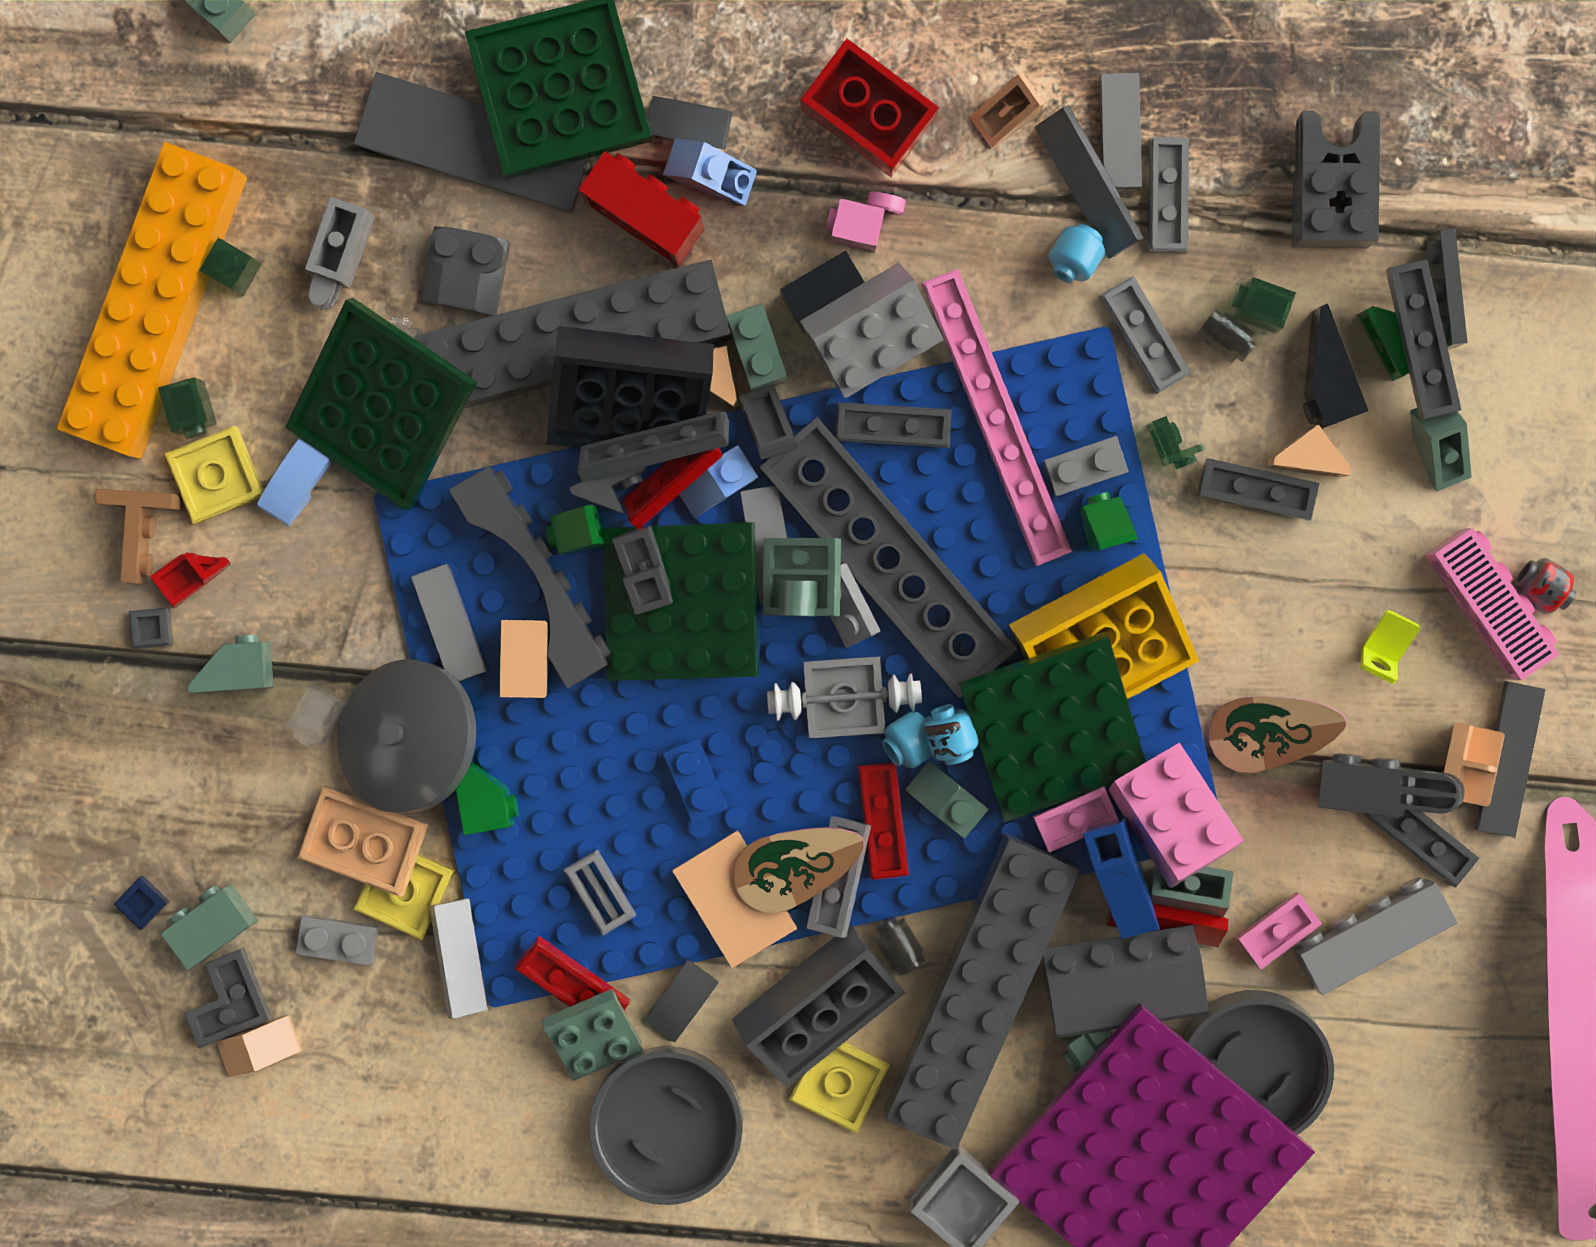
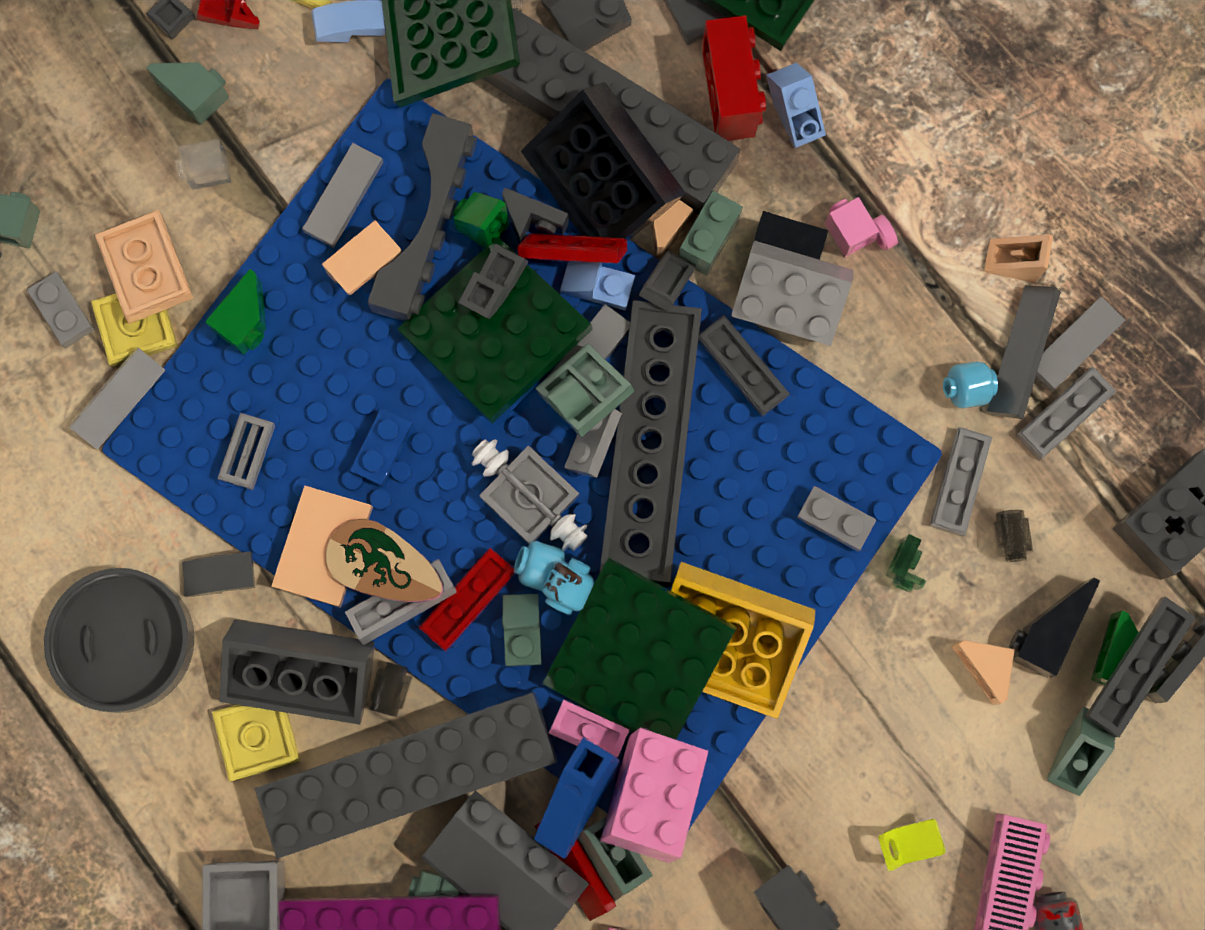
camera: 45 degrees right, 10 degrees down
(406, 736) = (240, 230): dark grey dish -> none
(562, 974) = (165, 488): red tile -> none
(592, 1034) = (140, 532): sand green plate -> none
(653, 446) = (583, 215): dark grey tile -> none
(689, 121) = (815, 58): dark grey slope -> none
(869, 107) = (934, 165): red brick -> none
(996, 417) = (811, 431): bright pink tile -> none
(1106, 522) = (811, 564): green slope -> none
(1258, 489) = (931, 653): dark grey plate -> none
(1262, 304) = (1056, 539): clear green brick -> none
(1271, 731) = (775, 815): shield -> none

